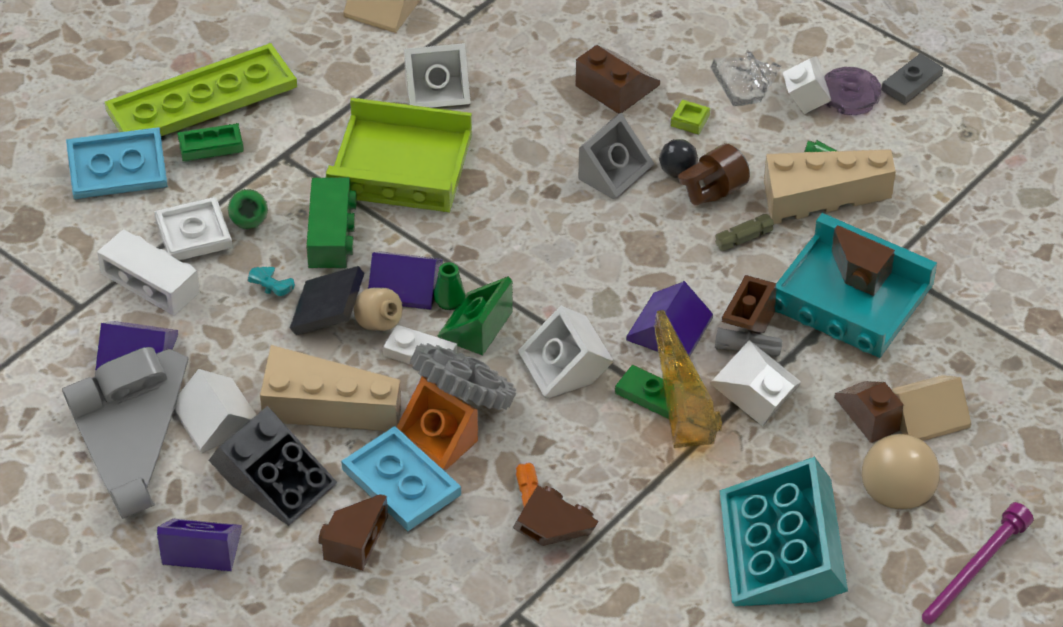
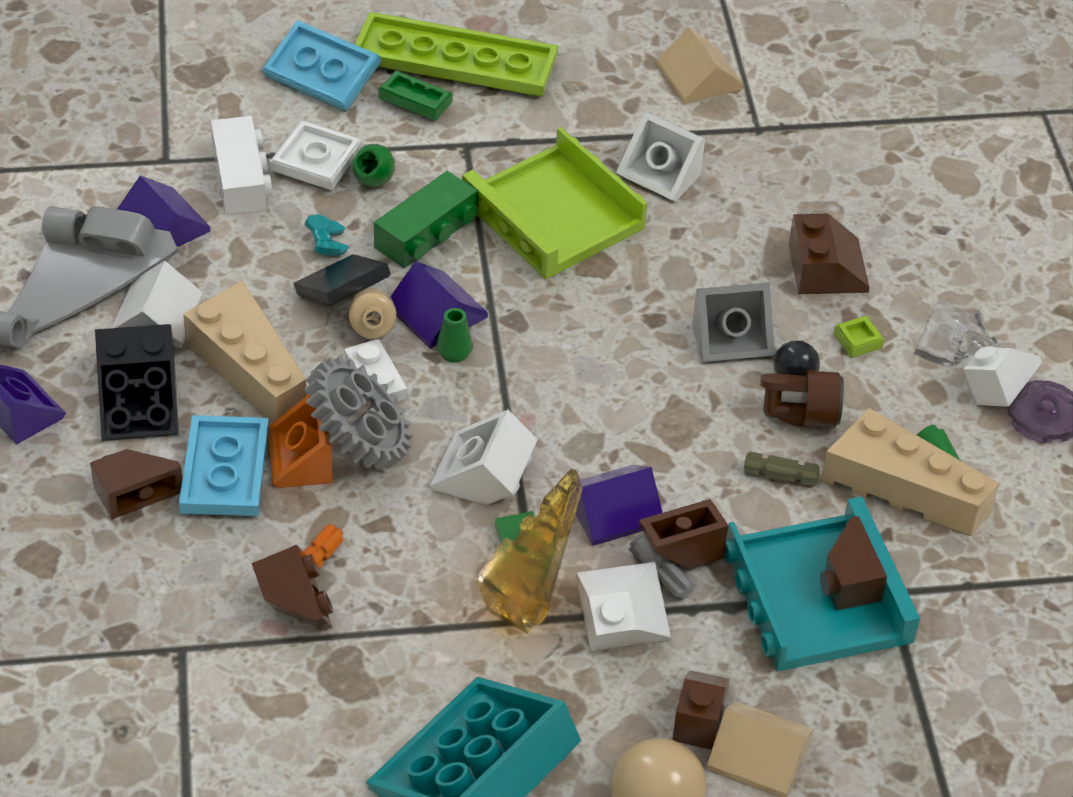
camera: 40 degrees right, 0 degrees up
(480, 316) = (454, 383): green slope -> none

